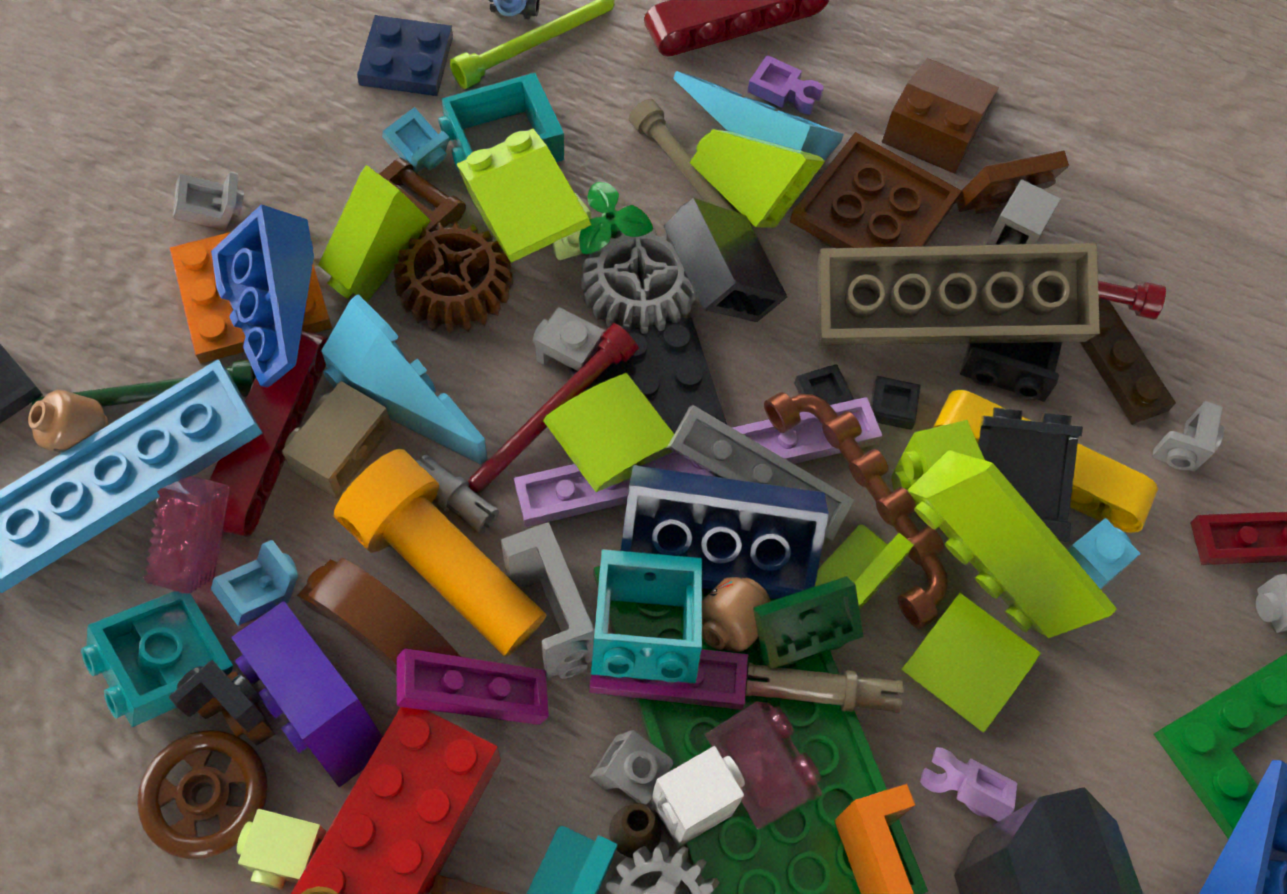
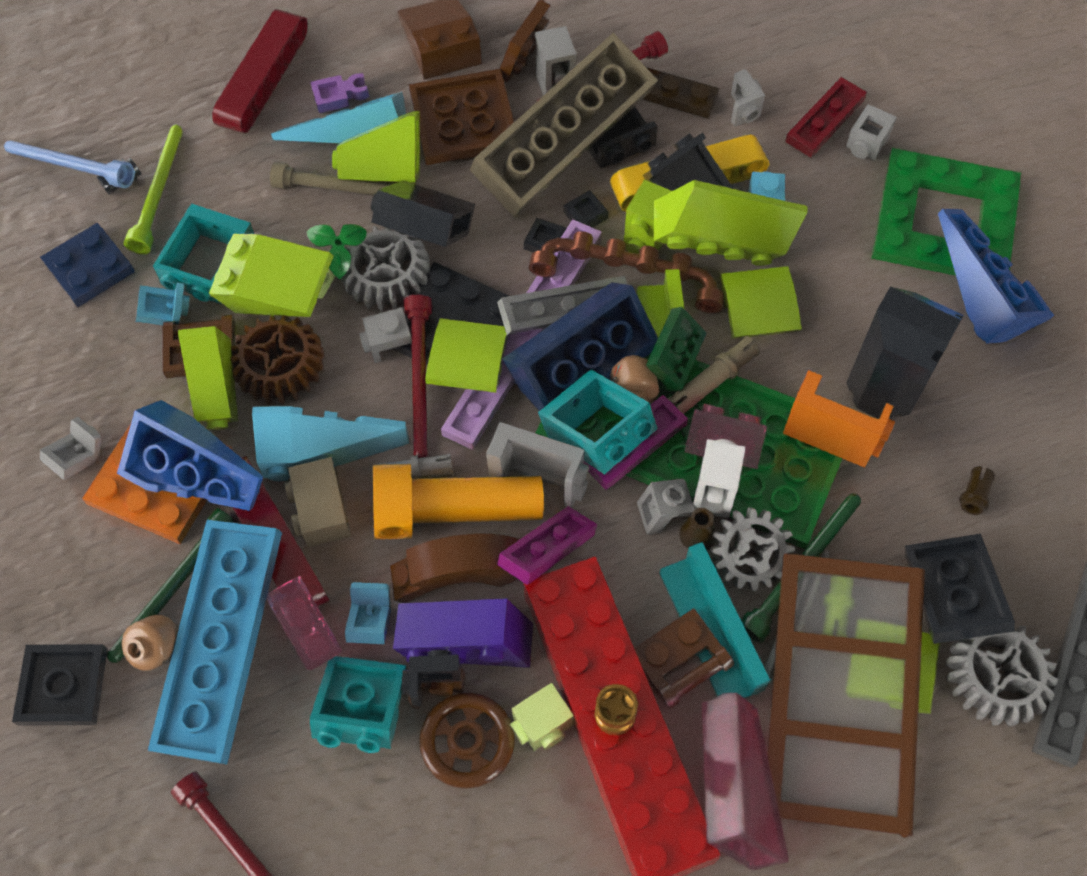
camera: 40 degrees left, 0 degrees up
(978, 786) = (828, 355): lavender plate -> none

